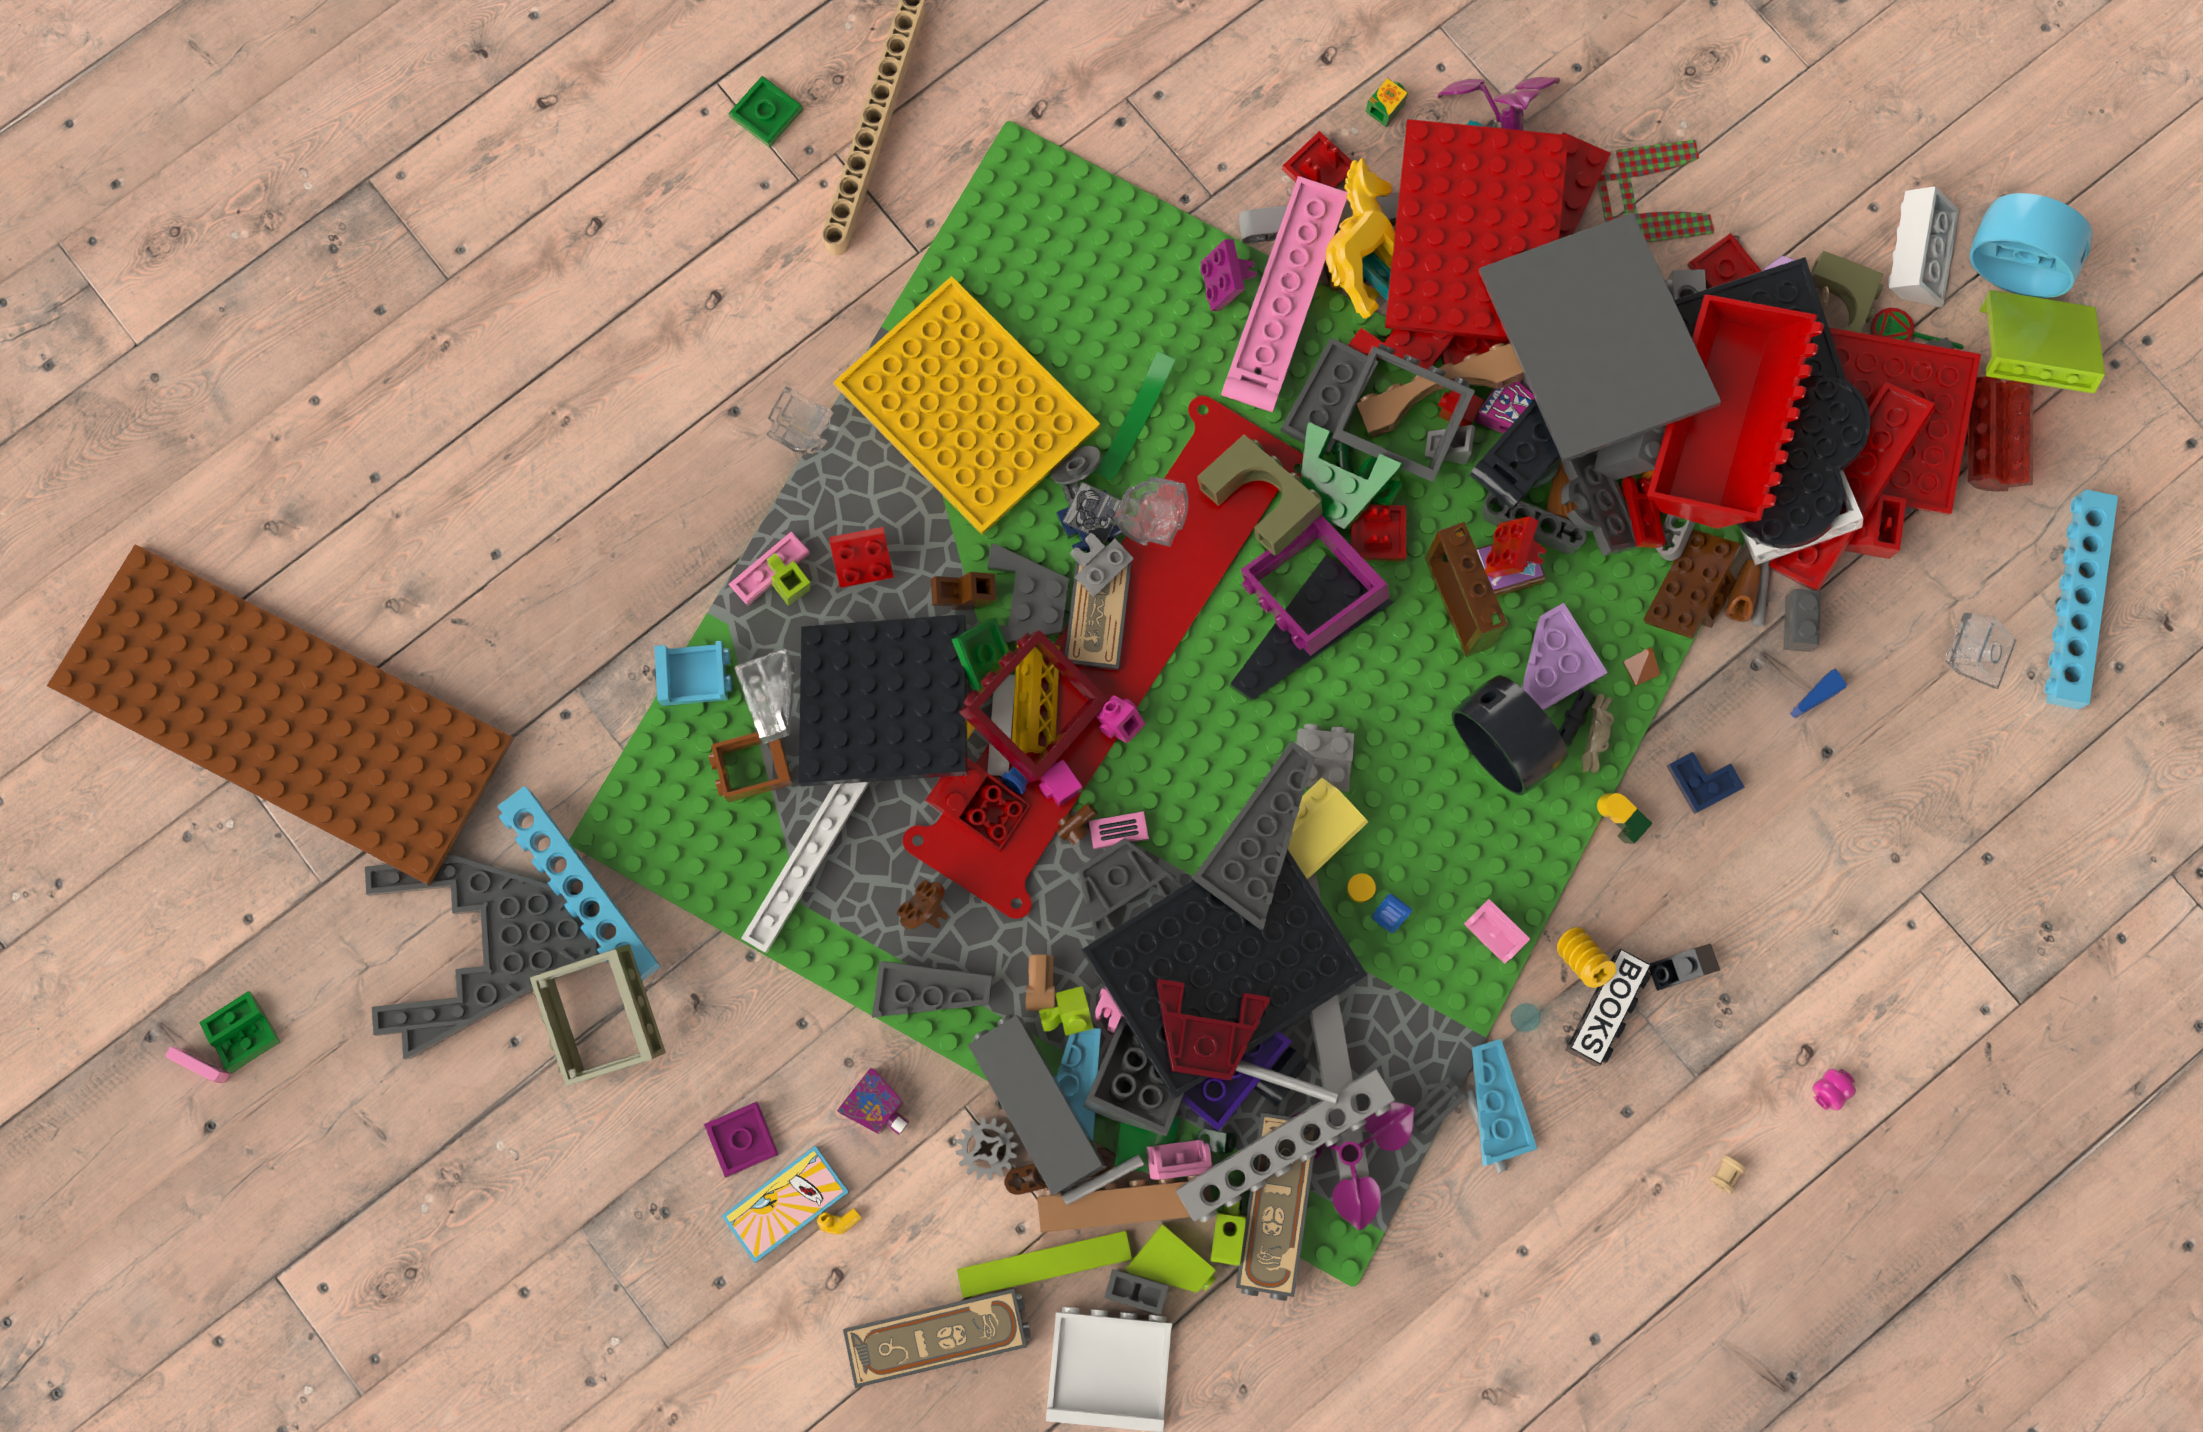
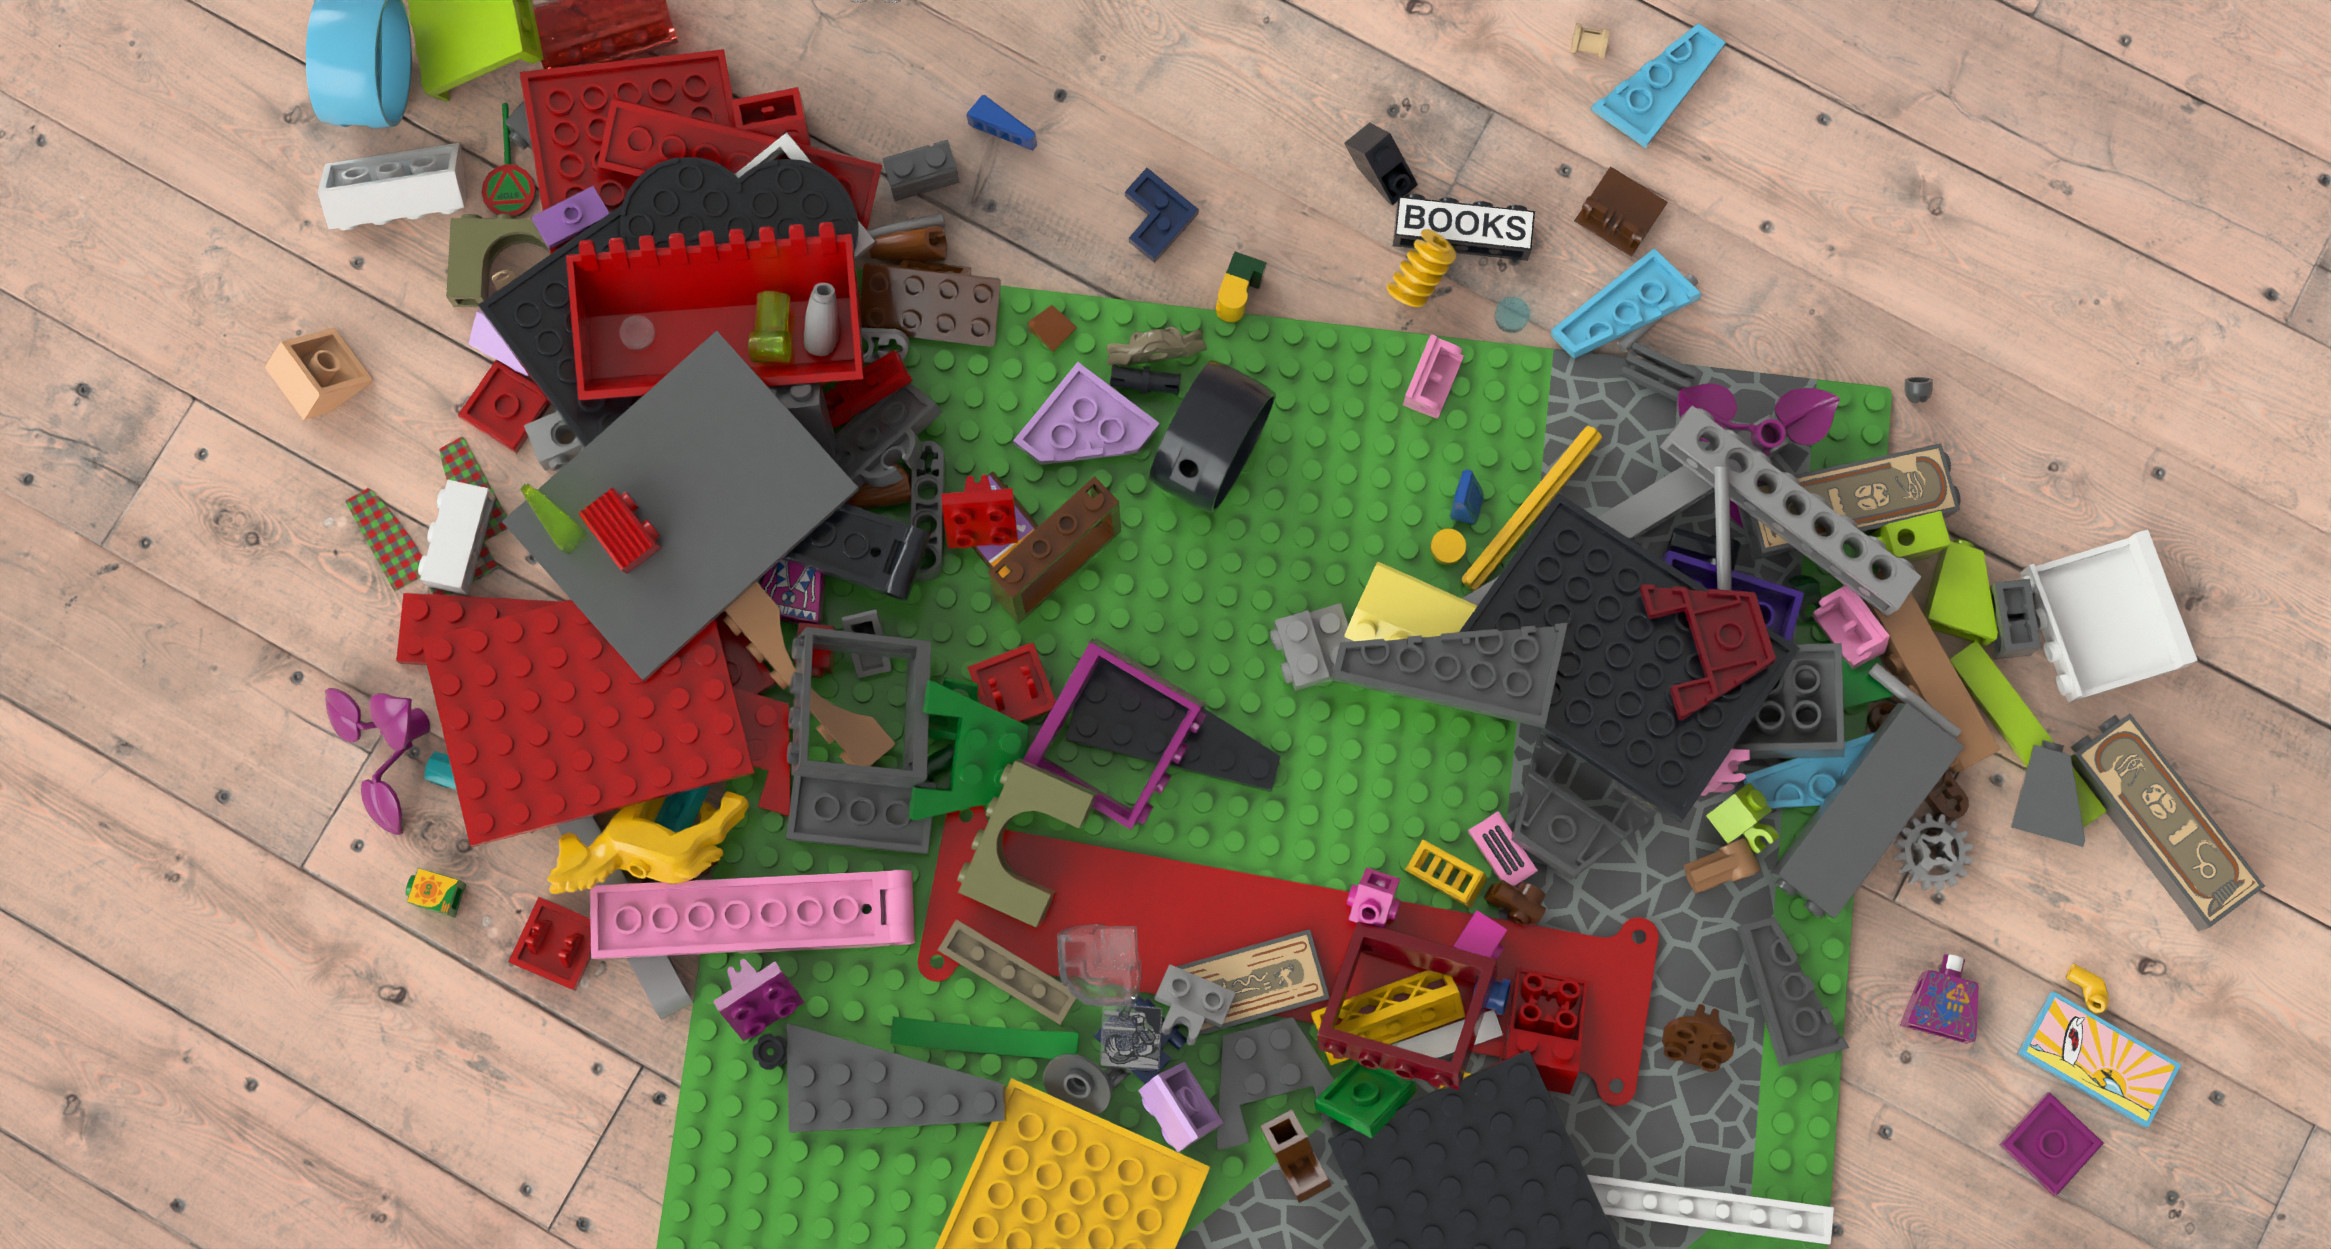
camera: 110 degrees left, 0 degrees up
(989, 1254) = (2049, 796): none -> dark grey slope
(1031, 528) = (1180, 1106): none -> lavender slope
(1102, 799) = (1472, 890): none -> yellow slope
(1133, 329) = (863, 1087): none -> dark grey wing
(1176, 449) = (1007, 971): none -> dark tan plate
(1190, 270) = (760, 1050): none -> black plate
(1347, 1308) = (1918, 389): none -> dark grey hinge
(1374, 975) = (1531, 508): none -> yellow axle
(1577, 1138) = (1620, 211): none -> reddish brown hinge
(1594, 284) = (620, 529): none -> red brick
(1617, 243) = (560, 526): none -> clear neon green slope
(1631, 194) = (456, 537): none -> white brick
(1663, 1202) = (1653, 93): none -> medium azure wing
(1702, 485) = (822, 321): none -> light grey piece
(1703, 446) = (771, 337): none -> clear neon green piece
(1743, 359) = (637, 332): none -> clear plate
(1798, 150) = (317, 372): none -> light nougat slope
(1852, 349) = (570, 217): none -> medium lavender plate

